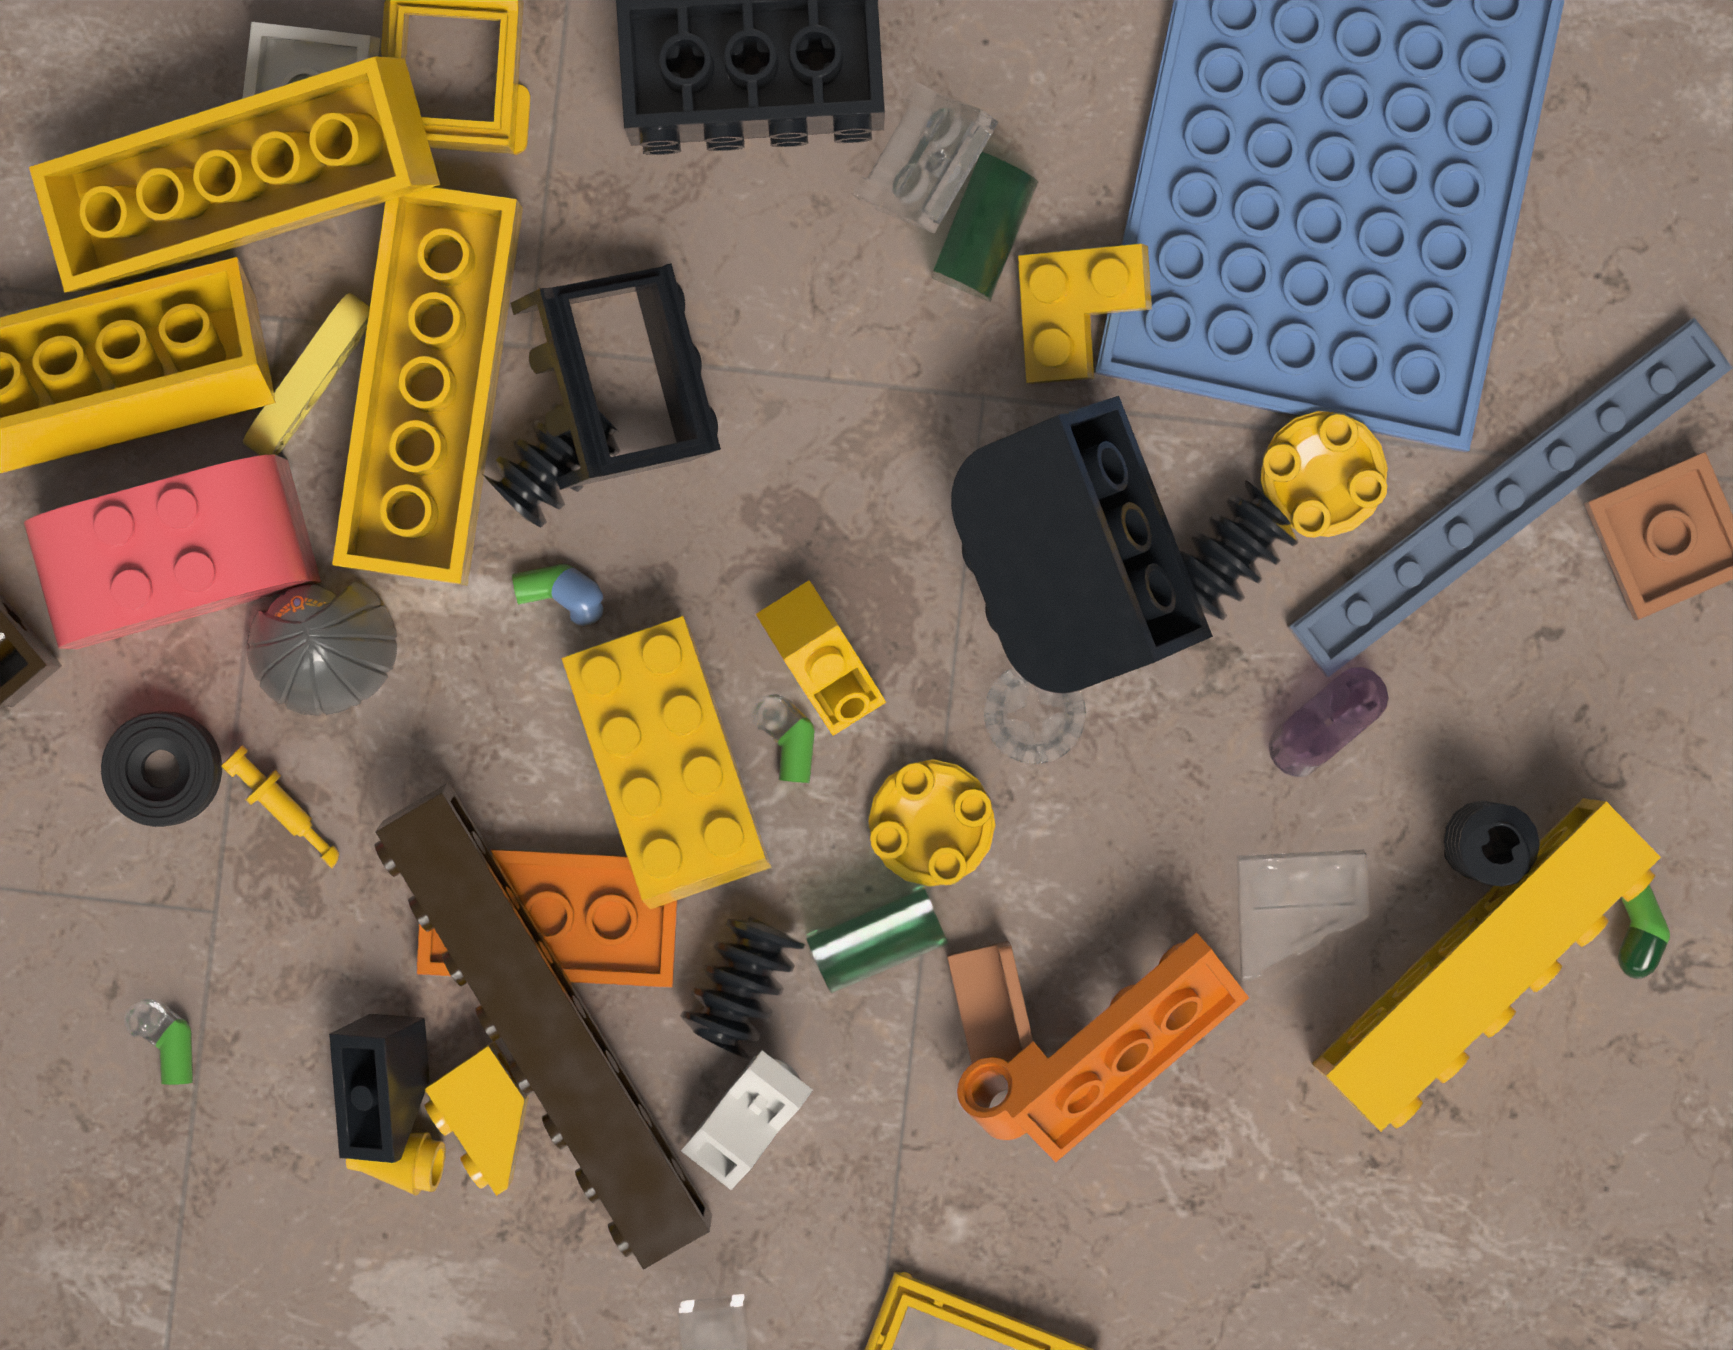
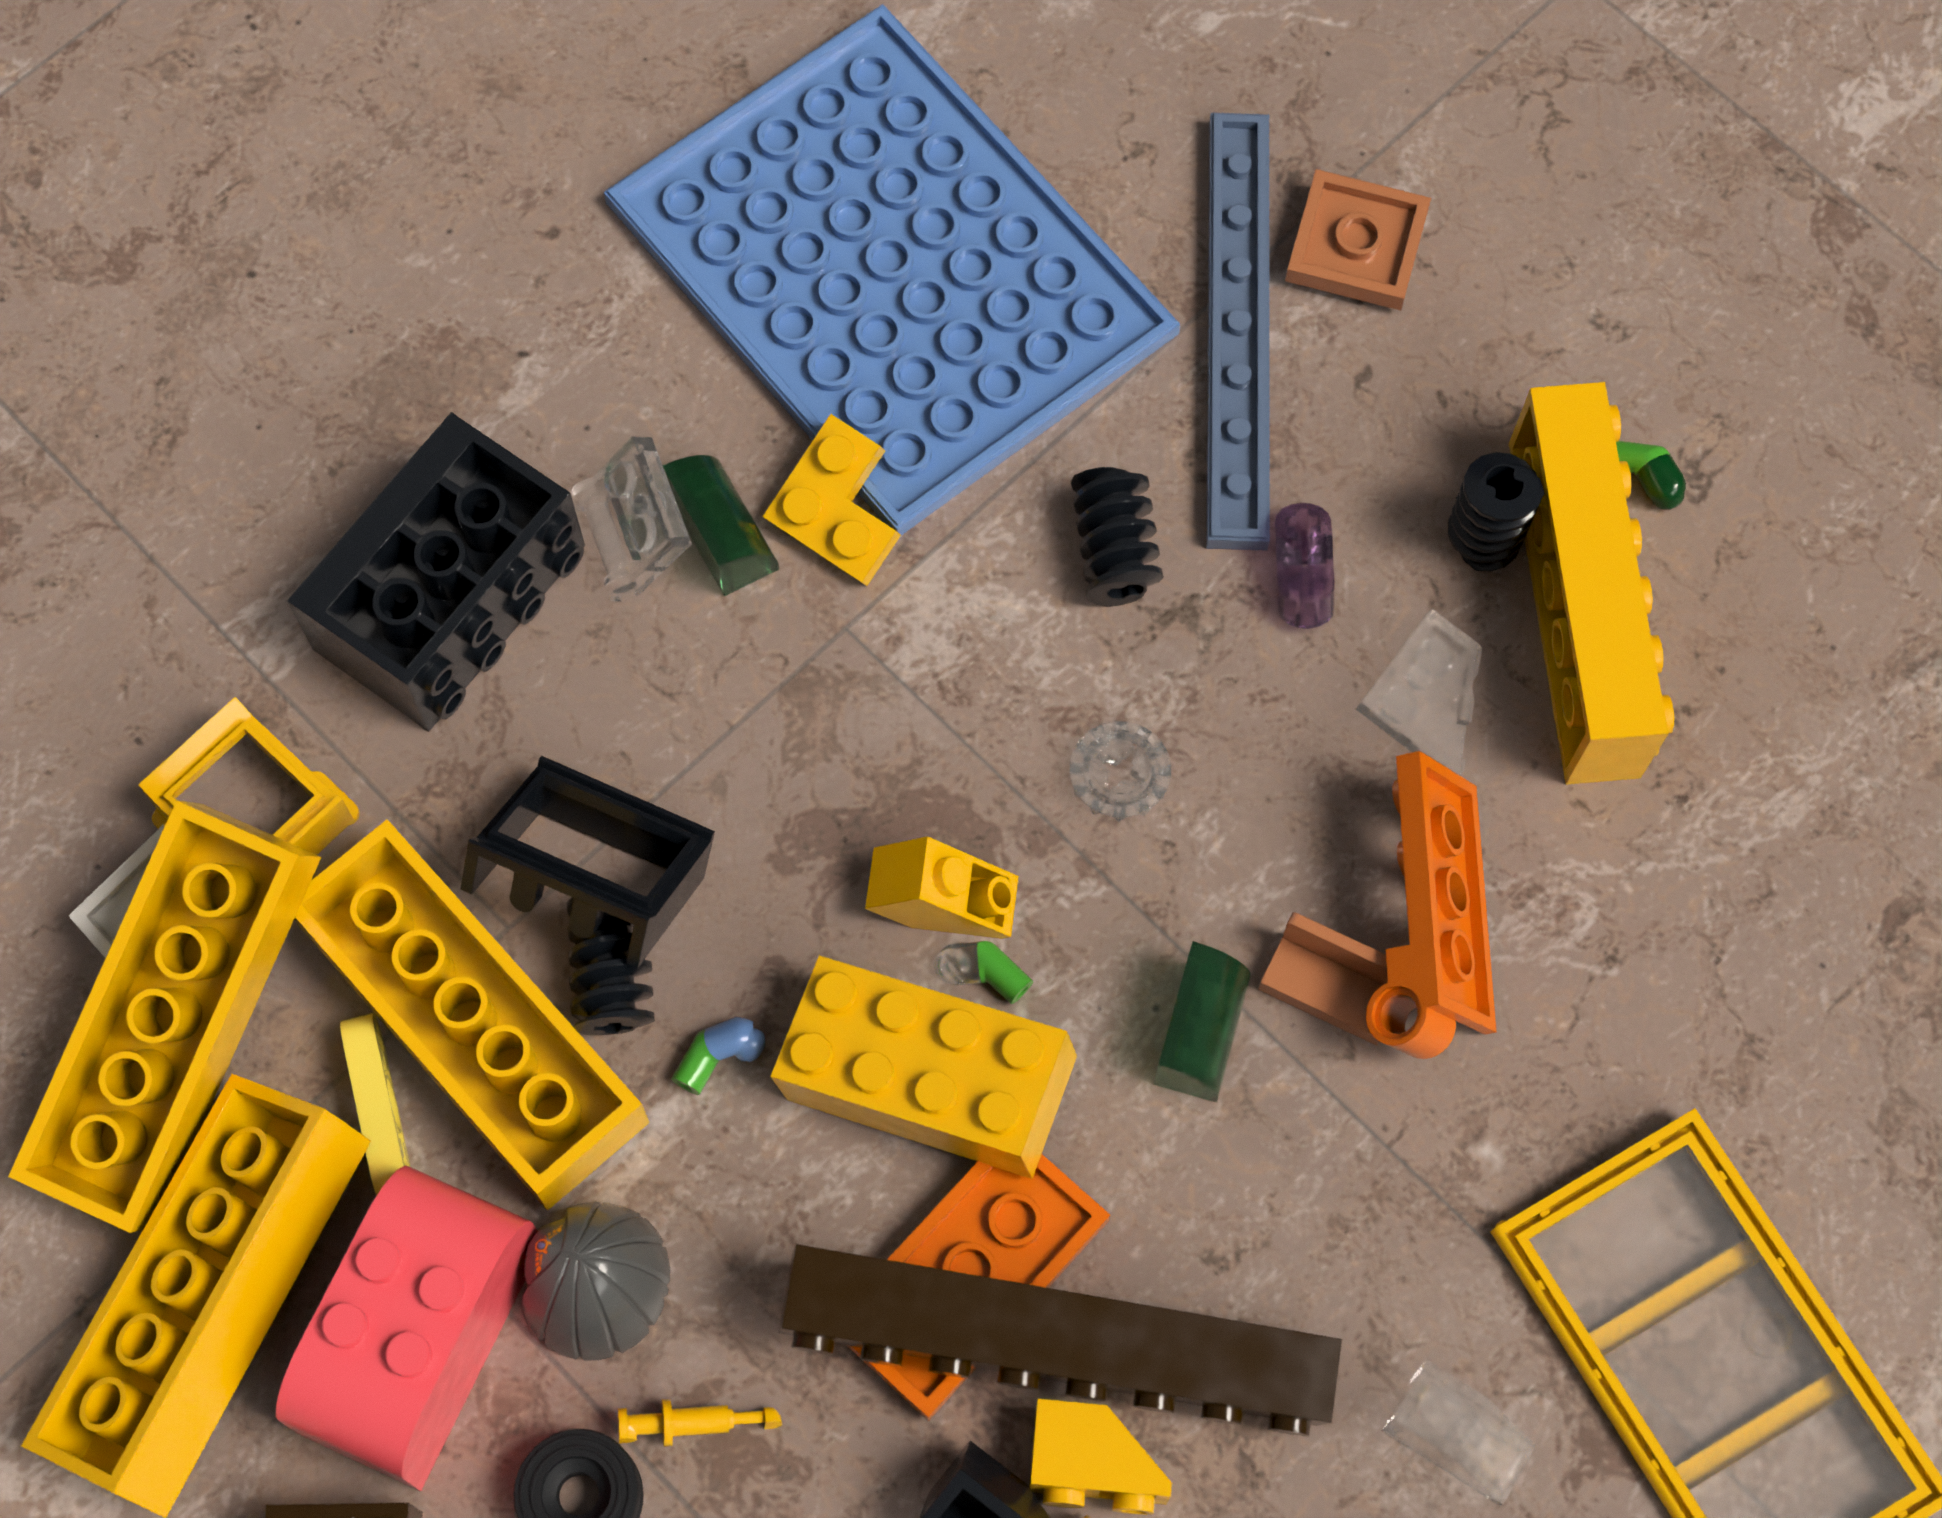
camera: 50 degrees left, 20 degrees down
(741, 984) = (1151, 1159): black piece -> none
(747, 1119) = (1268, 1237): white brick -> none
(931, 823) = (1142, 912): yellow dish -> none
(1074, 551) = (1017, 622): black brick -> none
(1324, 473) = (1112, 424): yellow dish -> none

